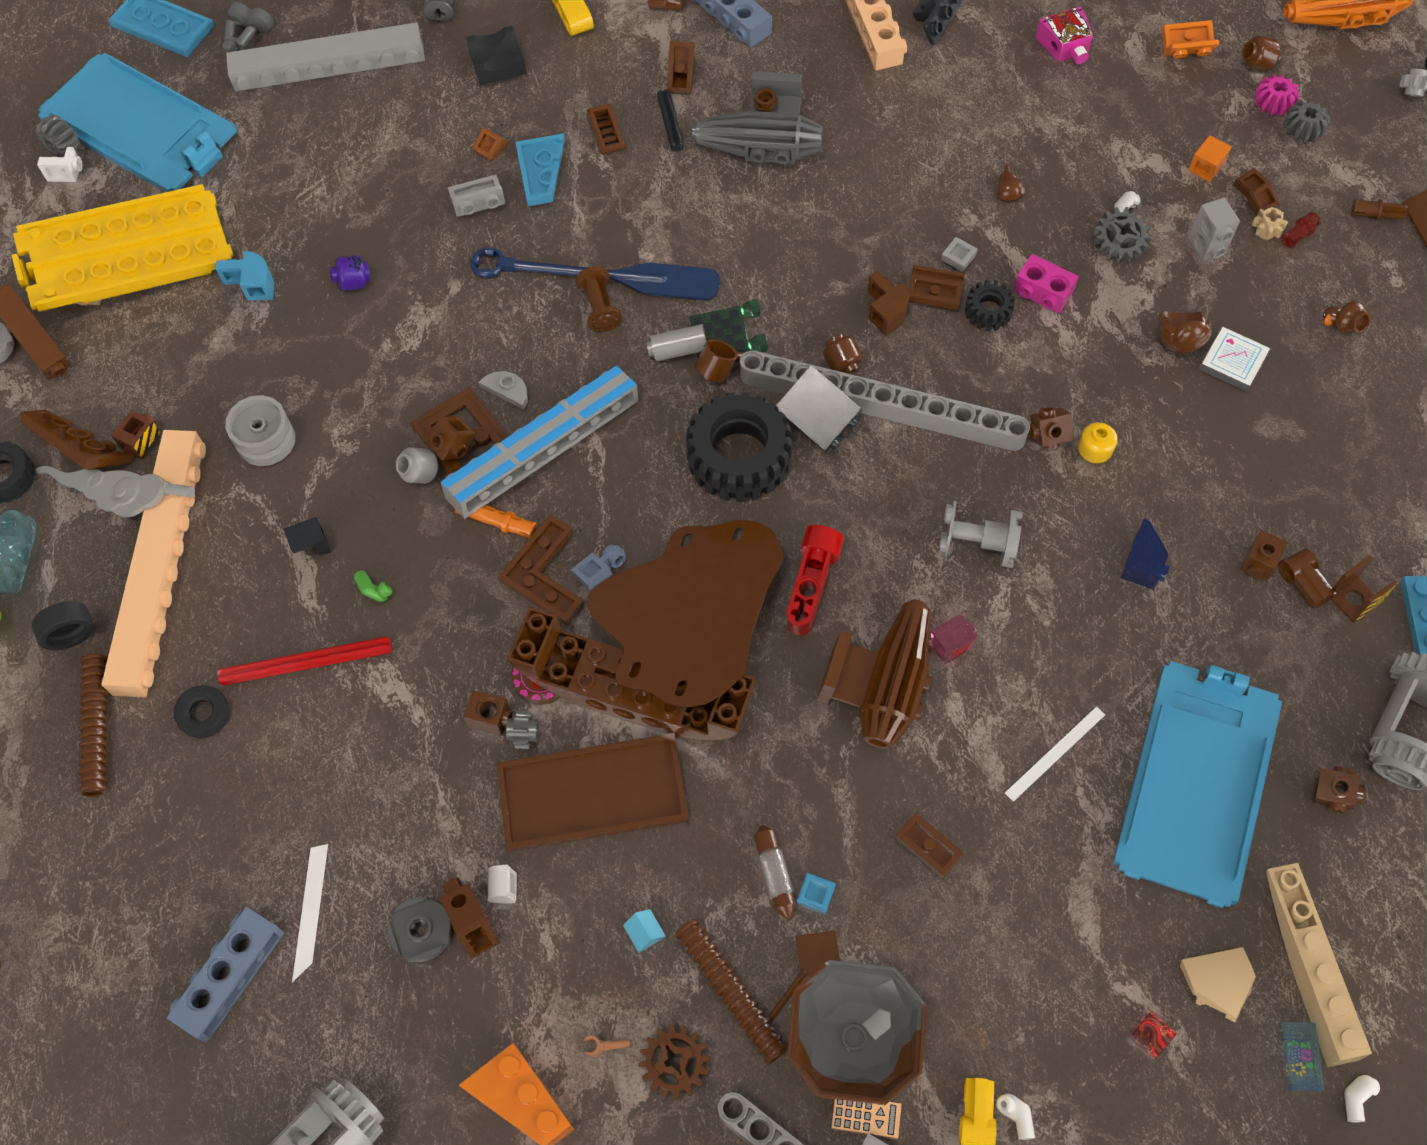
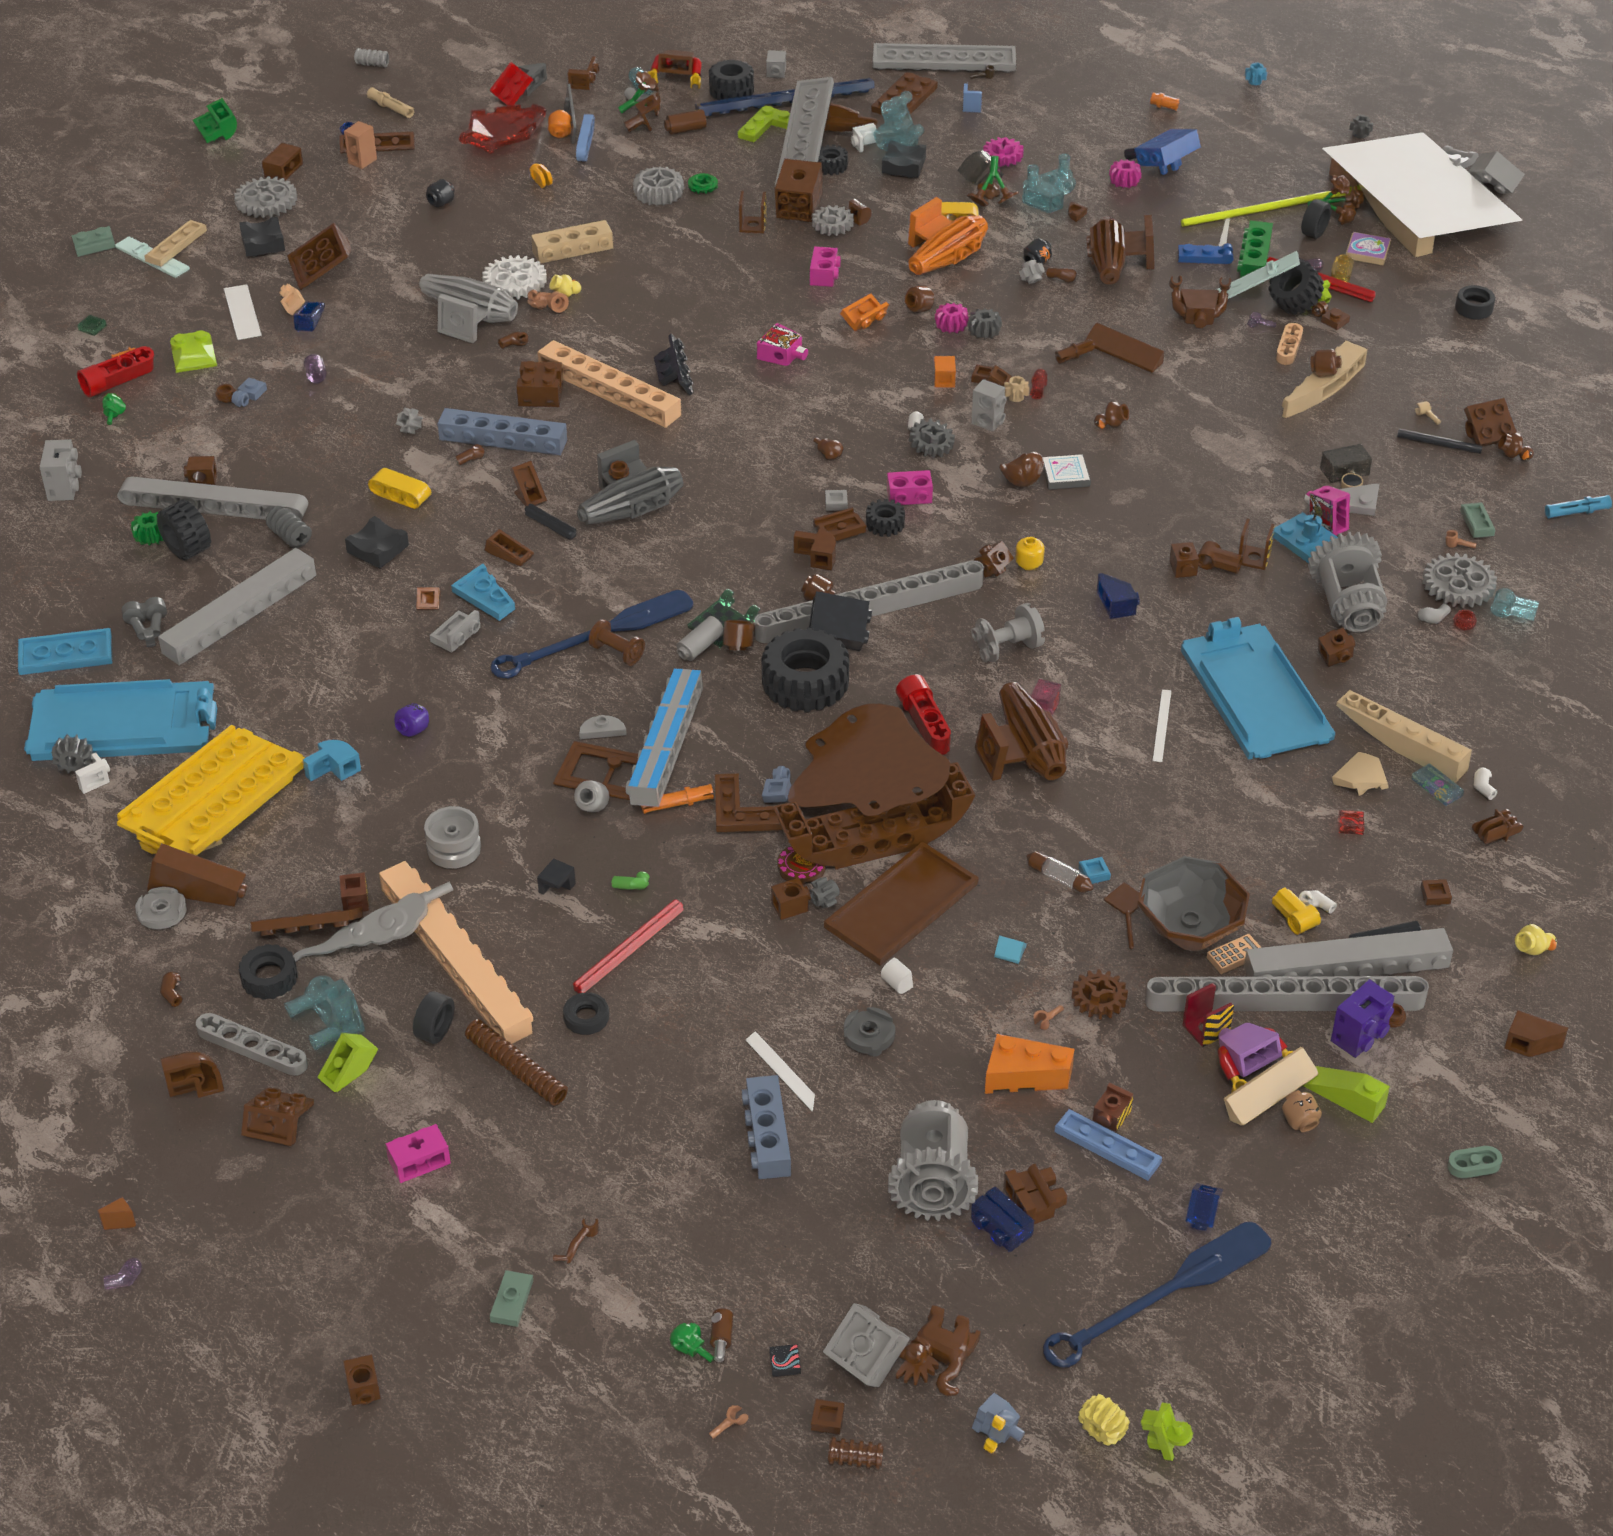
camera: 40 degrees left, 20 degrees down
(450, 438) = (593, 765): reddish brown brick -> none
(467, 918) = (898, 997): reddish brown torso -> none
(731, 991) = (1095, 941): reddish brown piece -> none
(929, 845) = (1137, 806): reddish brown plate -> none

